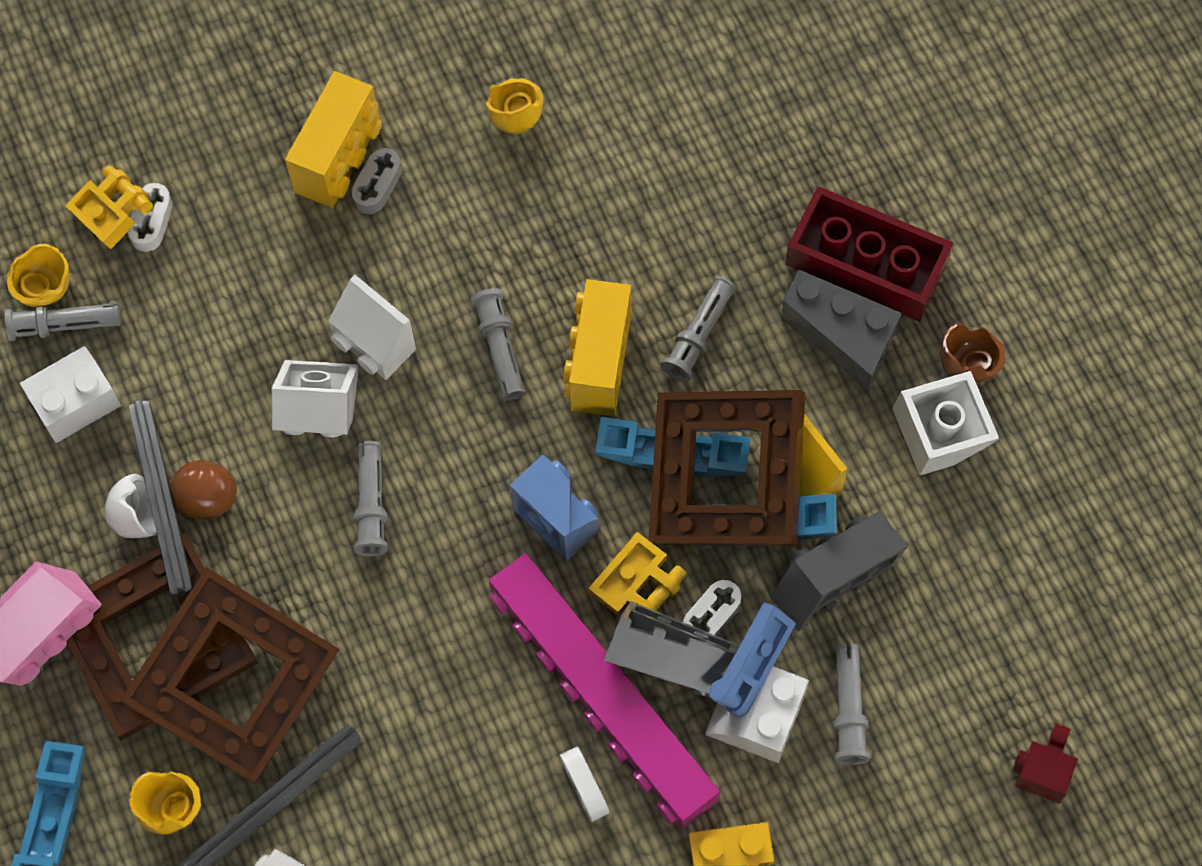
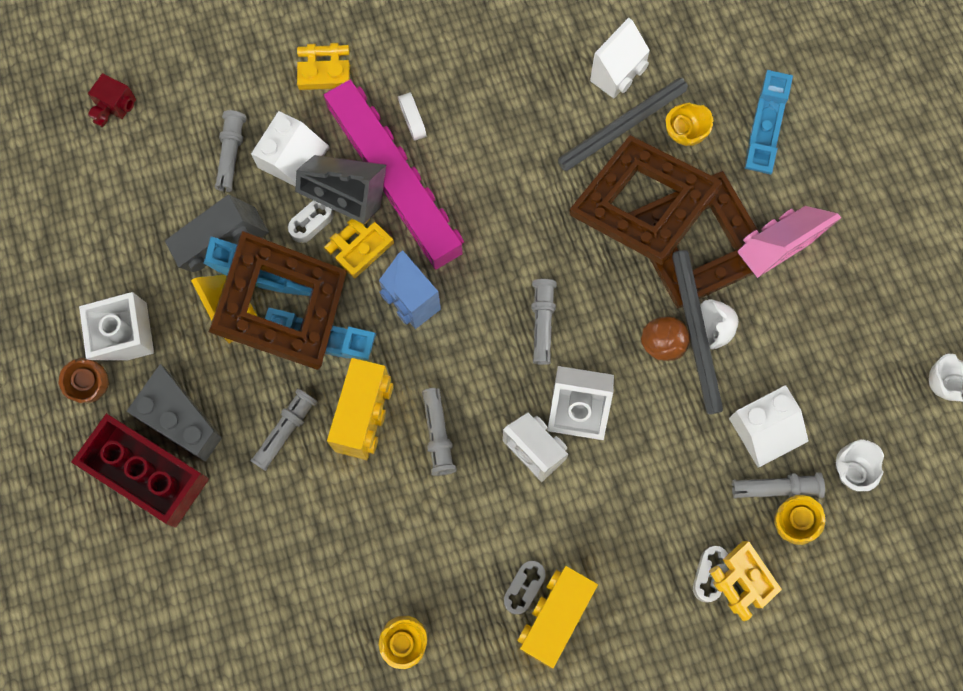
camera: 175 degrees left, 5 degrees up
(753, 660) = (285, 165): medium blue plate -> none

